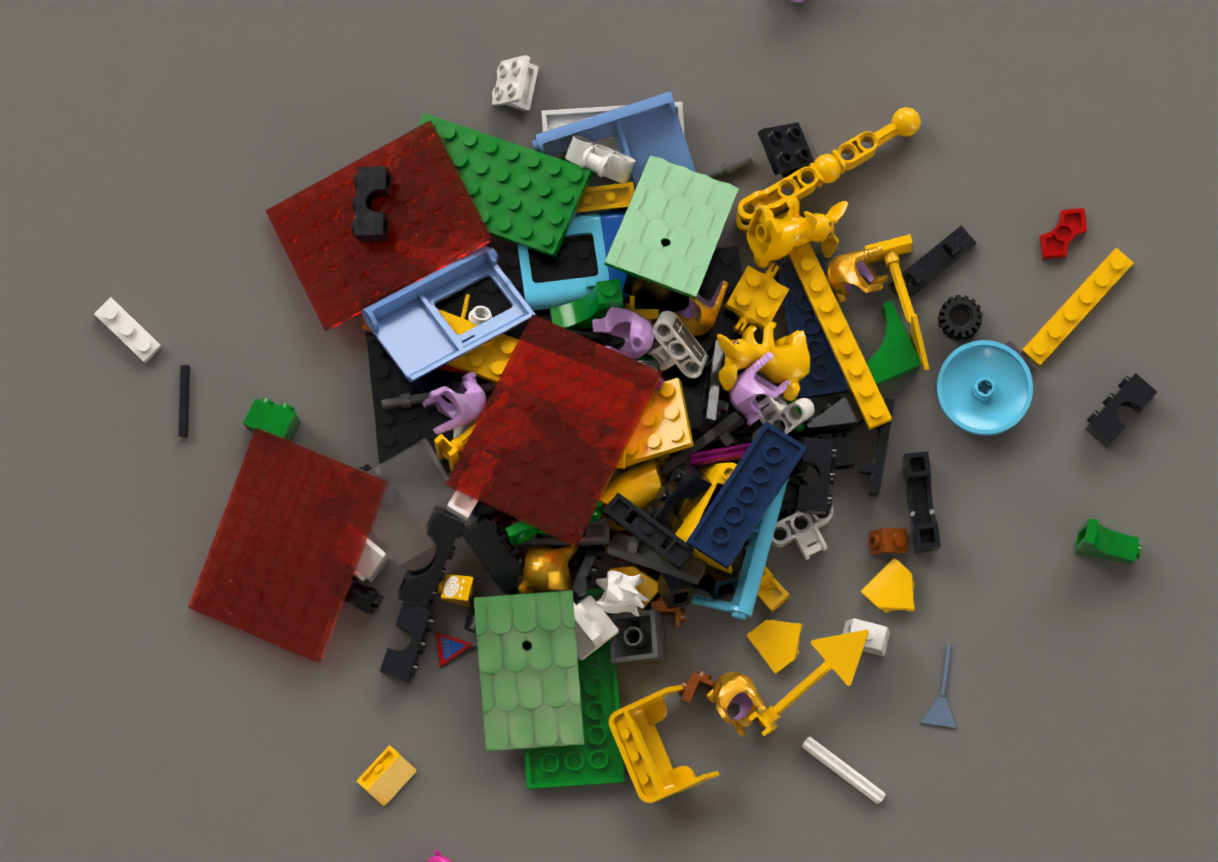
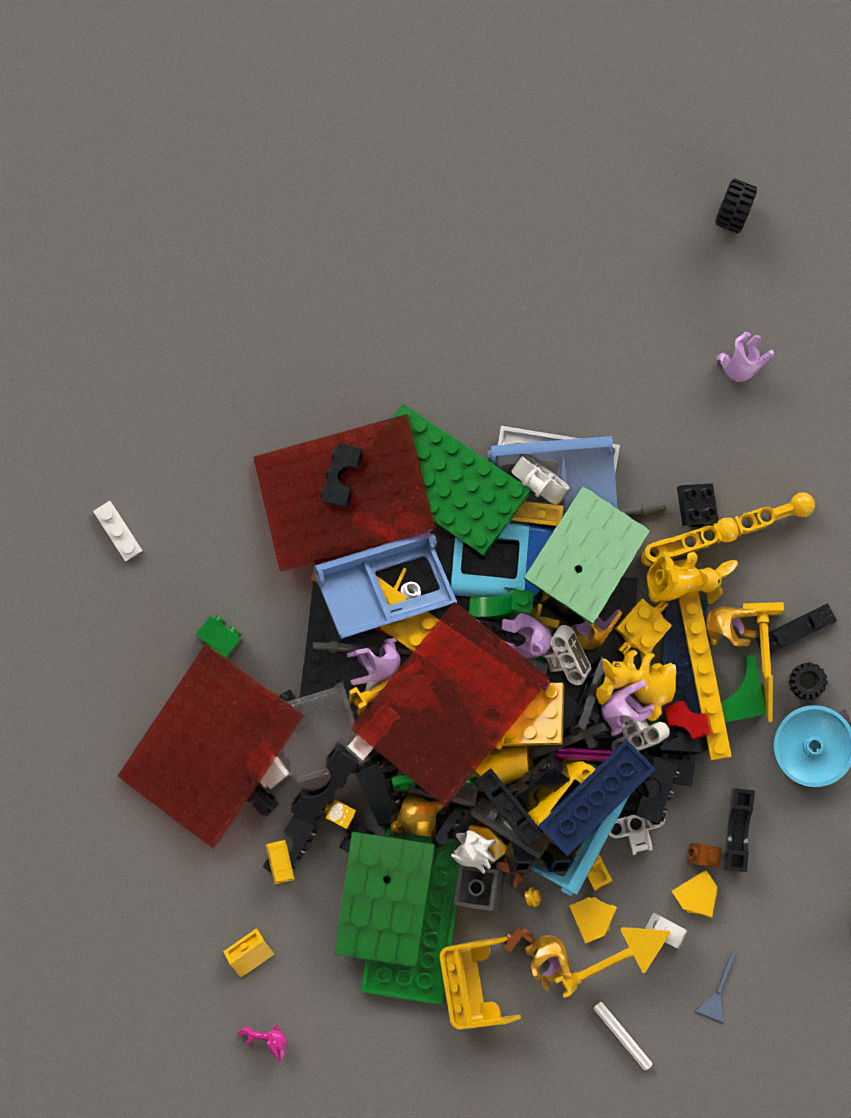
camera: 10 degrees right, 5 degrees up
(184, 400) = (151, 601): black bar -> none
(399, 660) = (280, 862): none -> yellow tile
(450, 647) = (324, 858): piece -> none
(515, 83) = (484, 396): white bracket -> none
(591, 627) = (444, 872): white bracket -> none
(702, 634) = (533, 897): none -> yellow plate
(822, 388) = (680, 716): none -> red tile
(876, 468) = (709, 792): black hinge -> none

